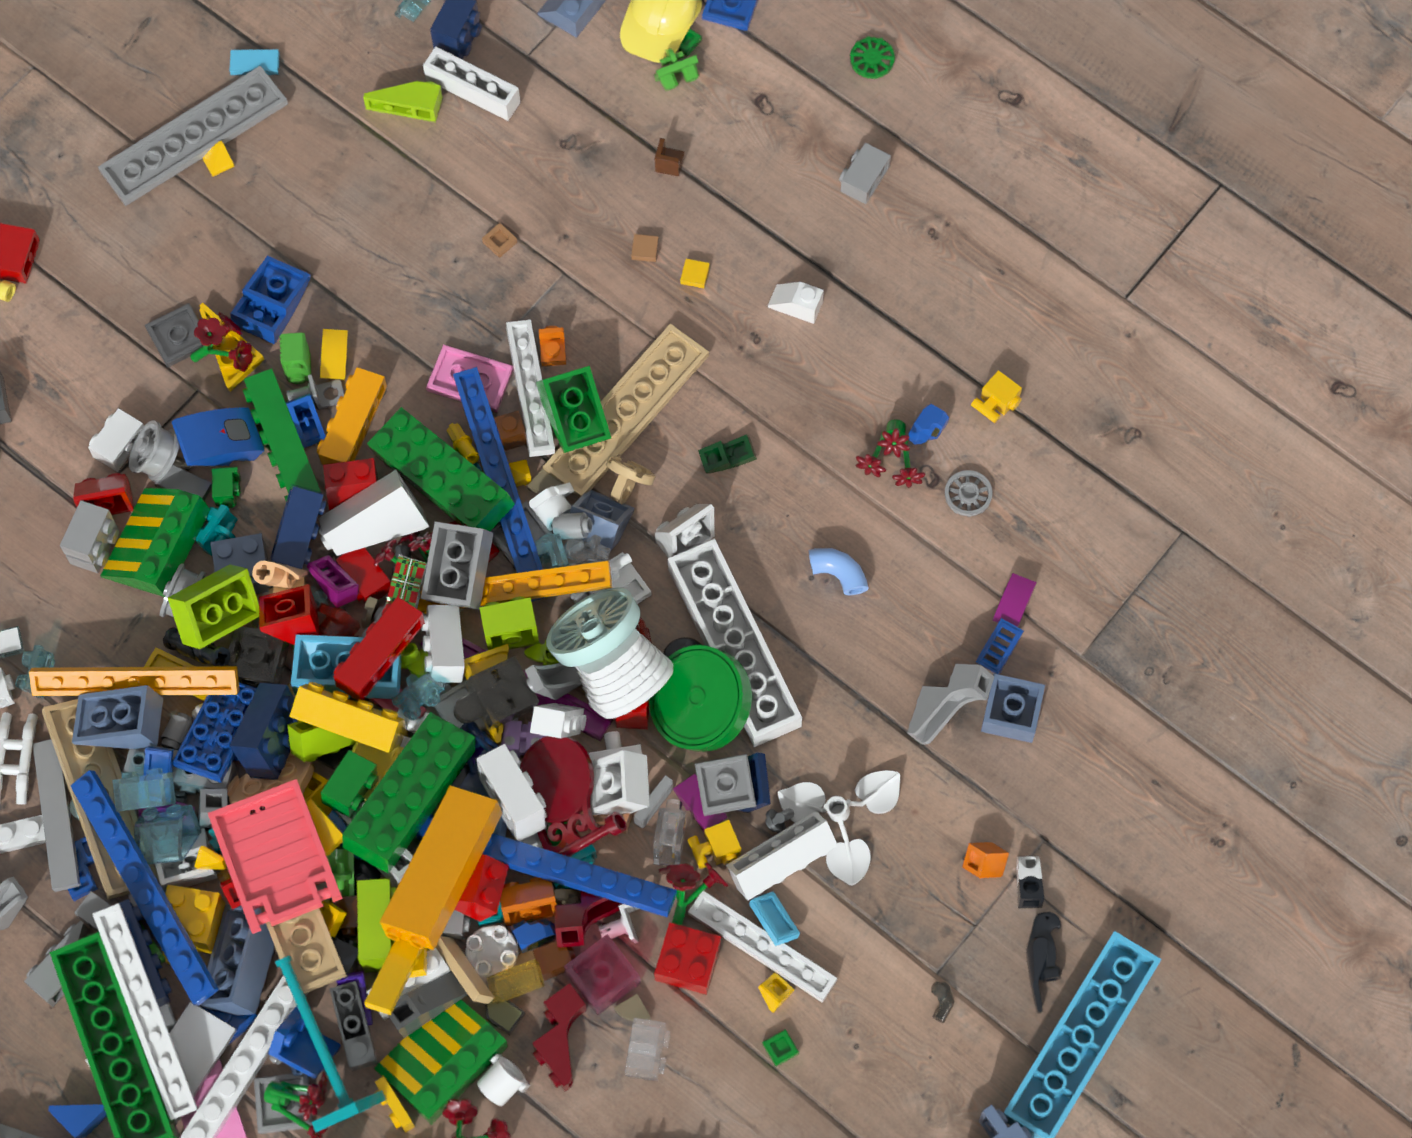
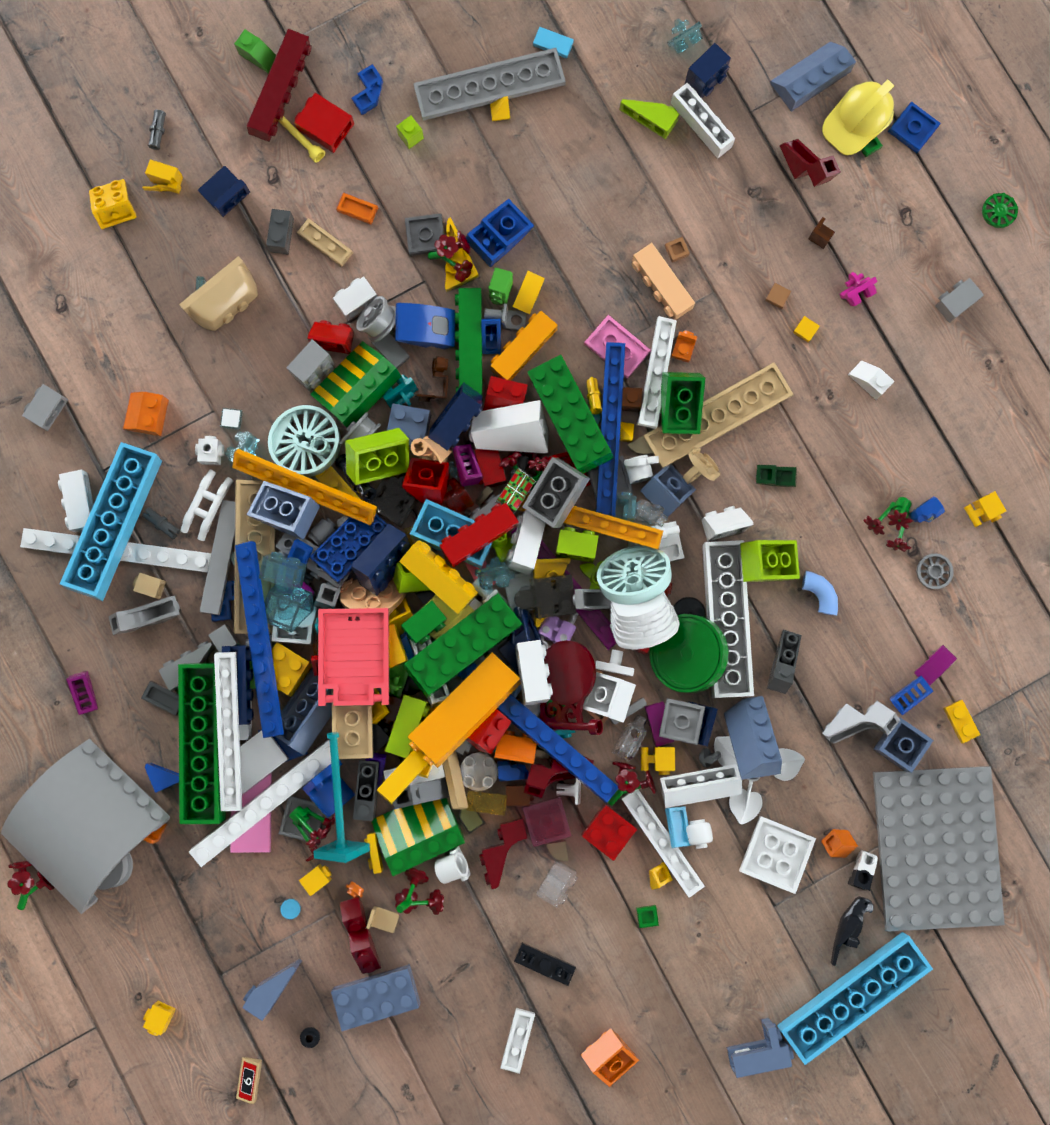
camera: 20 degrees right, 15 degrees up
(42, 1020) = (162, 698): none -> dark grey tile
(48, 203) = (370, 96): none -> blue tile
(53, 390) = (324, 242): none -> tan tile
(80, 336) = (357, 208): none -> orange tile
(114, 223) = (410, 132): none -> lime brick
(114, 628) = (297, 443): none -> light aqua piece
(209, 860) = (308, 637): yellow slope -> none
(226, 486) = (418, 363): green brick -> none
(253, 485) = (439, 365): none -> reddish brown piece
(496, 282) = (662, 281): none -> light nougat brick
(557, 720) = (584, 633): white brick -> none
(572, 525) = (647, 491): light grey brick -> none
(616, 87) = (805, 162): none -> dark red arch
(667, 74) = (863, 167): bright green hips -> none
(746, 197) = (865, 285): none -> dark pink hips
(756, 550) = (769, 560): none -> lime brick
(804, 915) = (699, 833): none -> white head
(821, 767) = (753, 739): none -> sand blue slope
(827, 669) = (785, 662): none -> dark grey slope
(913, 904) = (777, 854): none -> white plate
(945, 998) = (772, 929): clear smoke arm -> none
(1076, 656) = (961, 721): none -> yellow plate
(1112, 820) = (938, 848): none -> light grey plate

